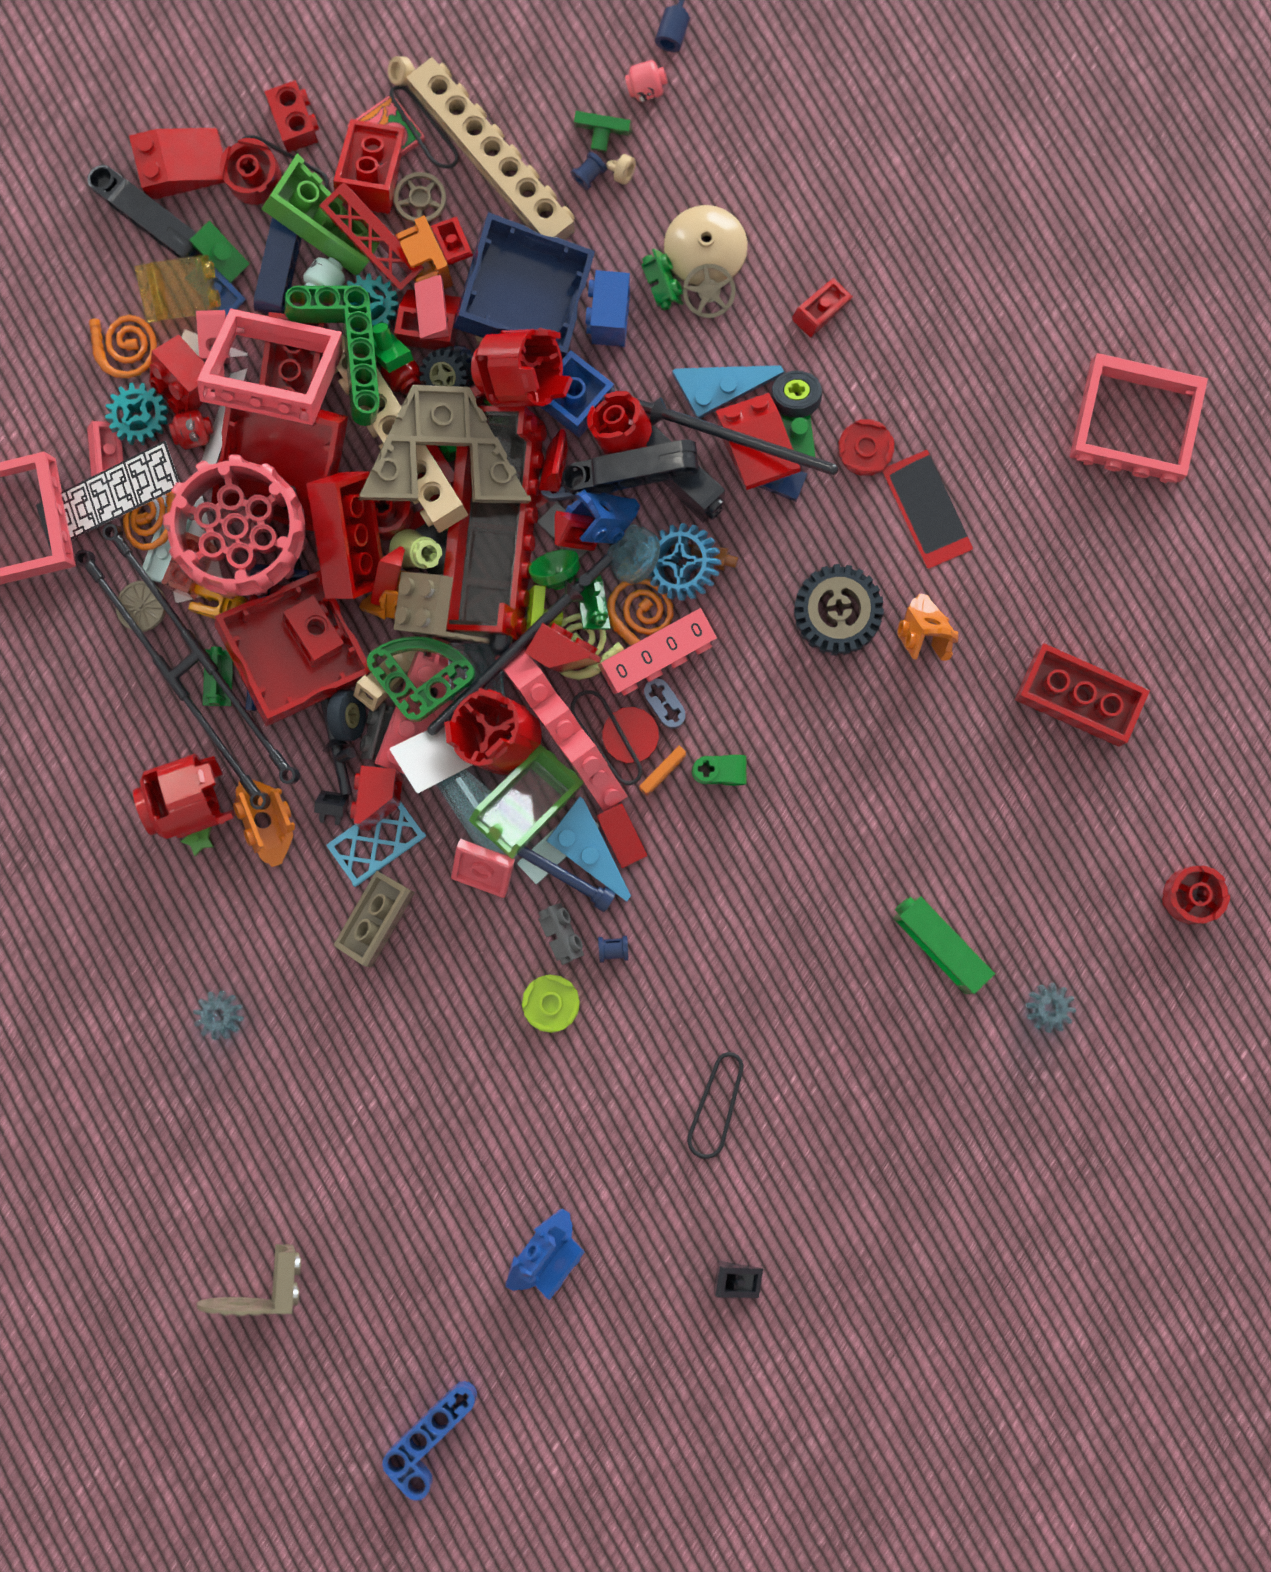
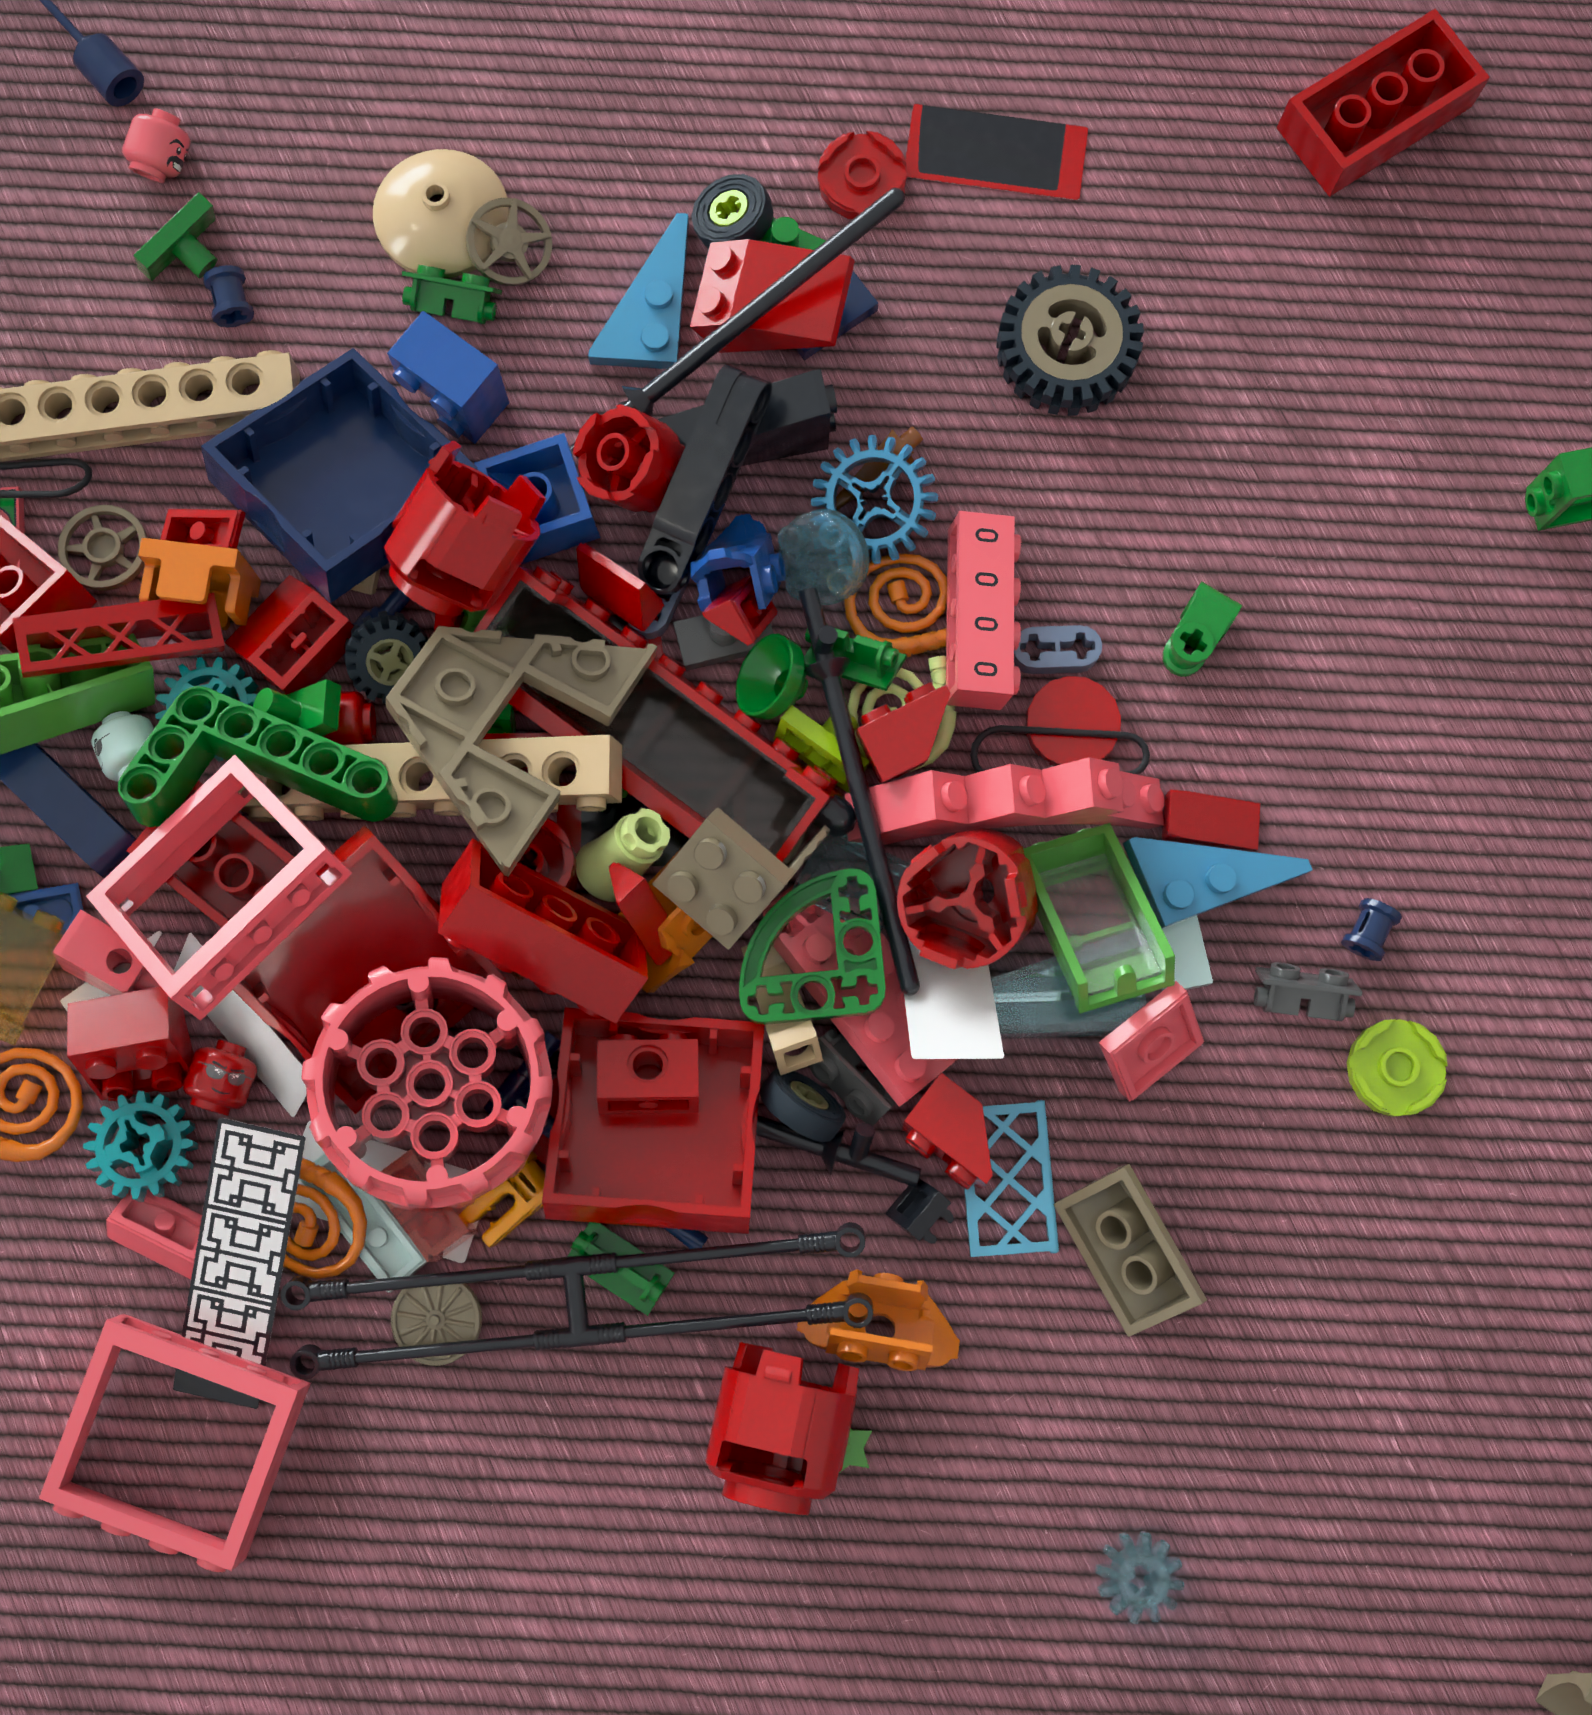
camera: 65 degrees left, 5 degrees down
(431, 308) = (283, 612): coral slope -> none
(599, 896) = (1287, 901): dark blue piece -> none
(623, 168) = (258, 250): tan tile -> none
(663, 771) = (1154, 706): orange tile -> none
(821, 307) = (630, 118): red slope -> none
(916, 626) = (1175, 241): orange piece -> none

